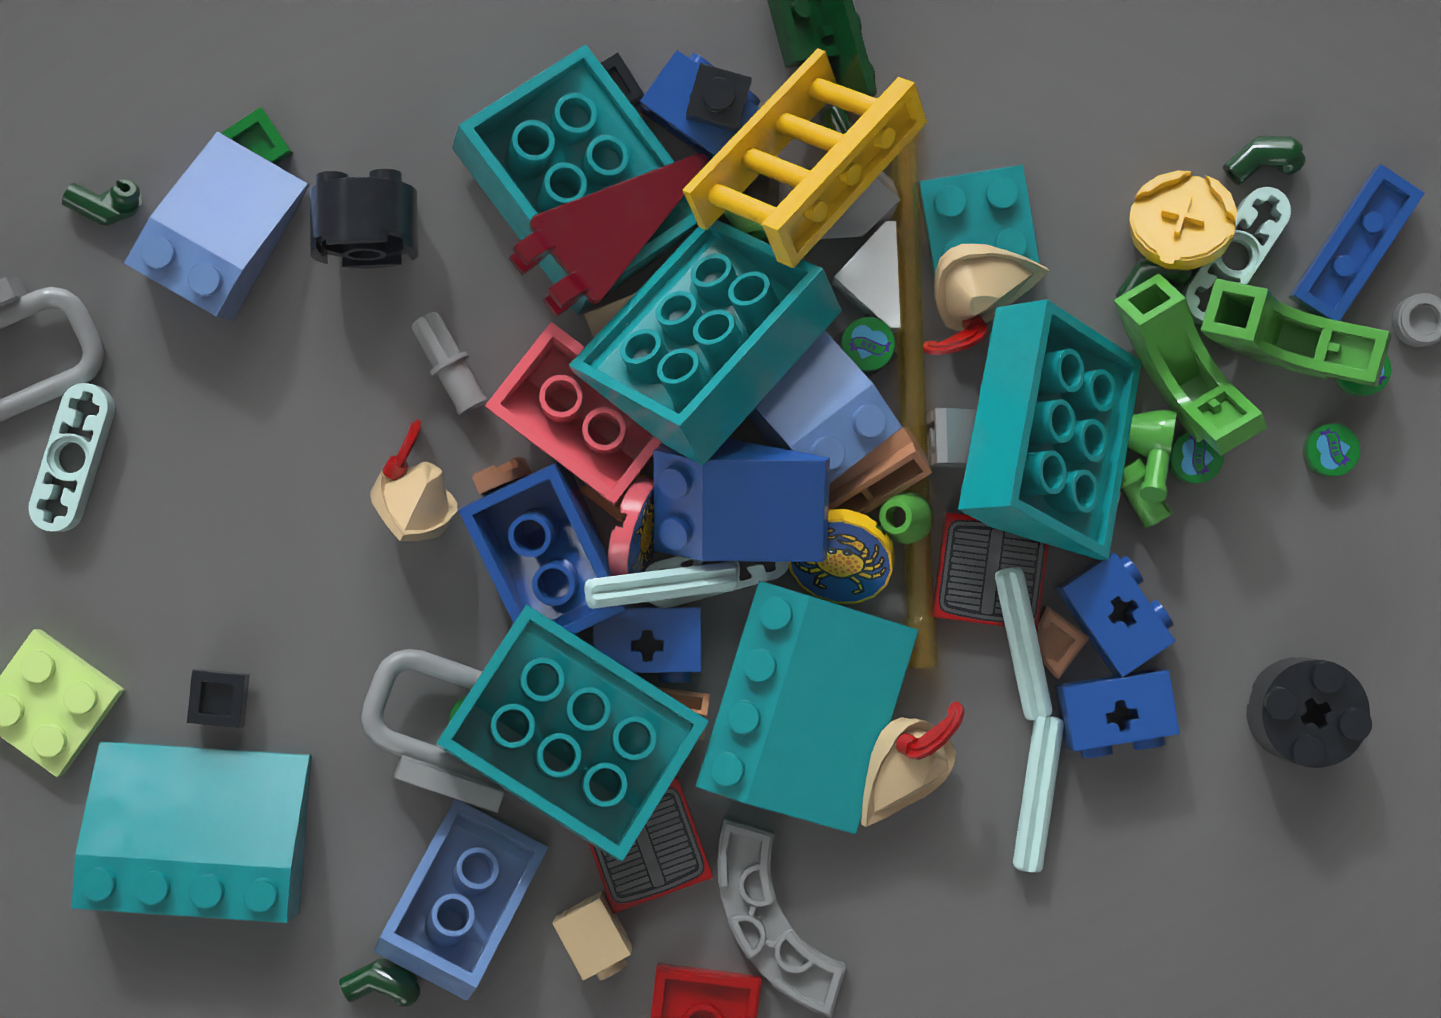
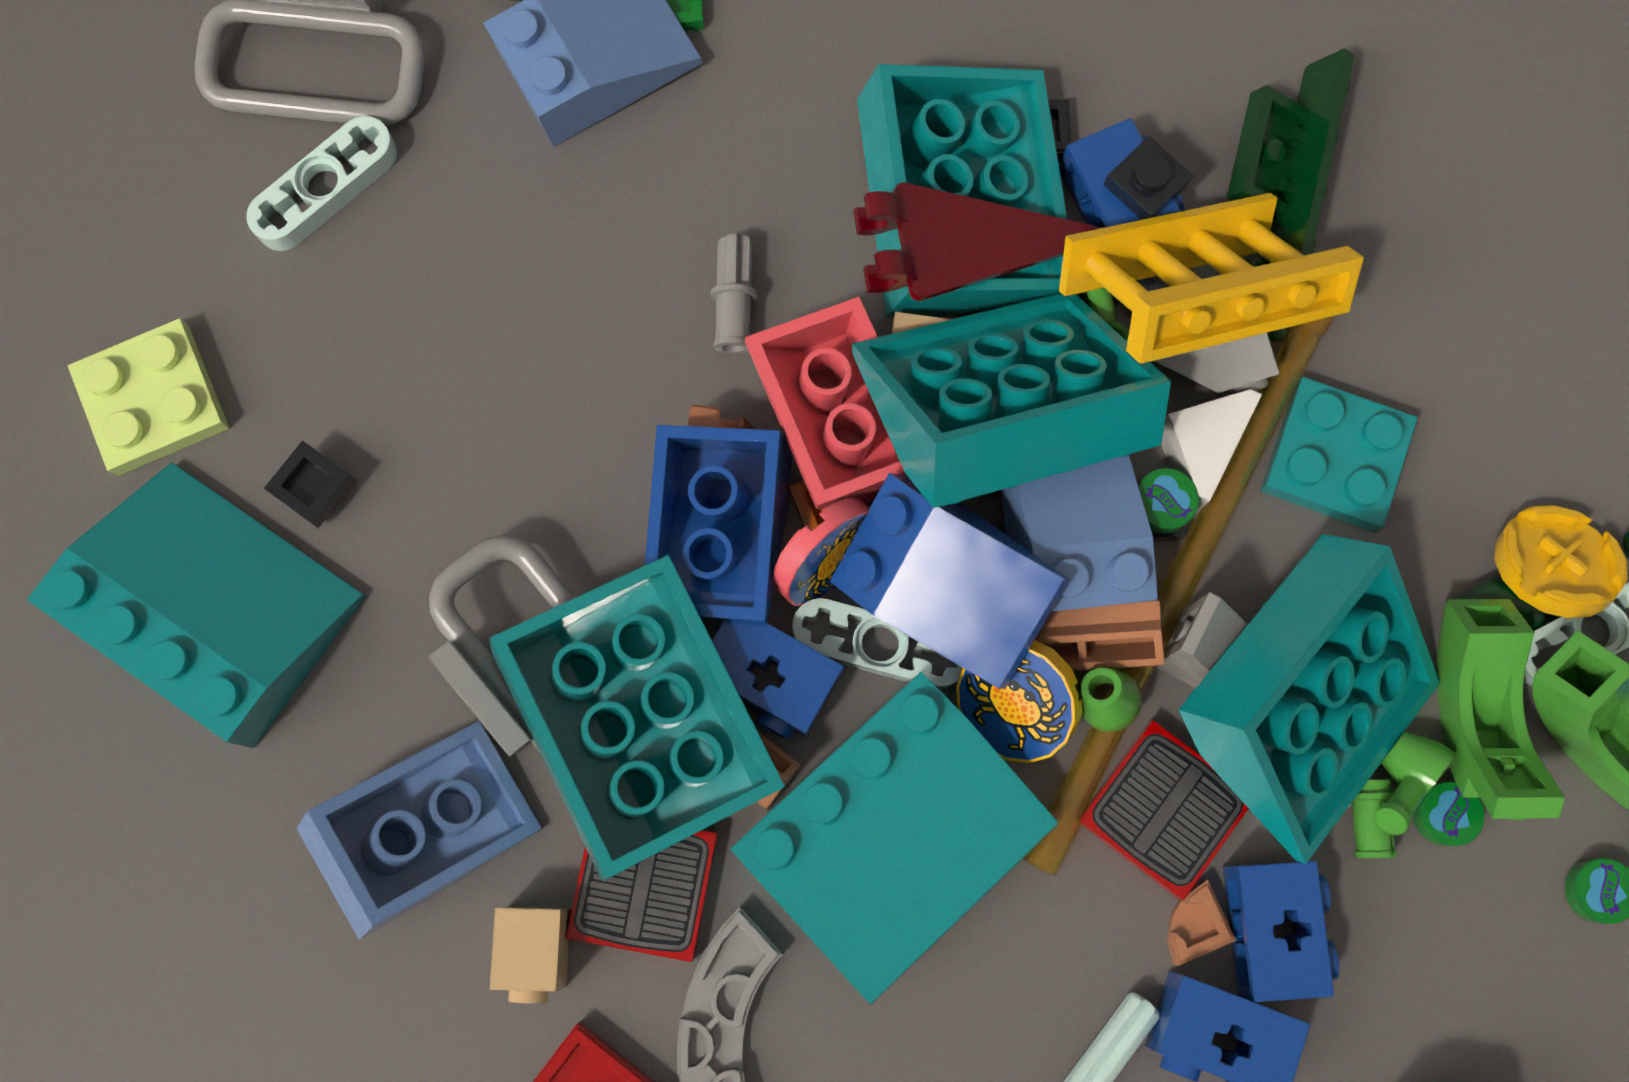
camera: 30 degrees right, 10 degrees down
(363, 219) = (734, 109): black brick -> none
(383, 978) = (290, 864): dark green arm -> none
(413, 498) = (622, 396): tan piece -> none
(660, 584) = (816, 616): light aqua axle -> none
(908, 763) = (970, 961): tan piece -> none
(971, 285) = (1301, 503): tan piece -> none
(1023, 643) = (1162, 904): light aqua axle -> none

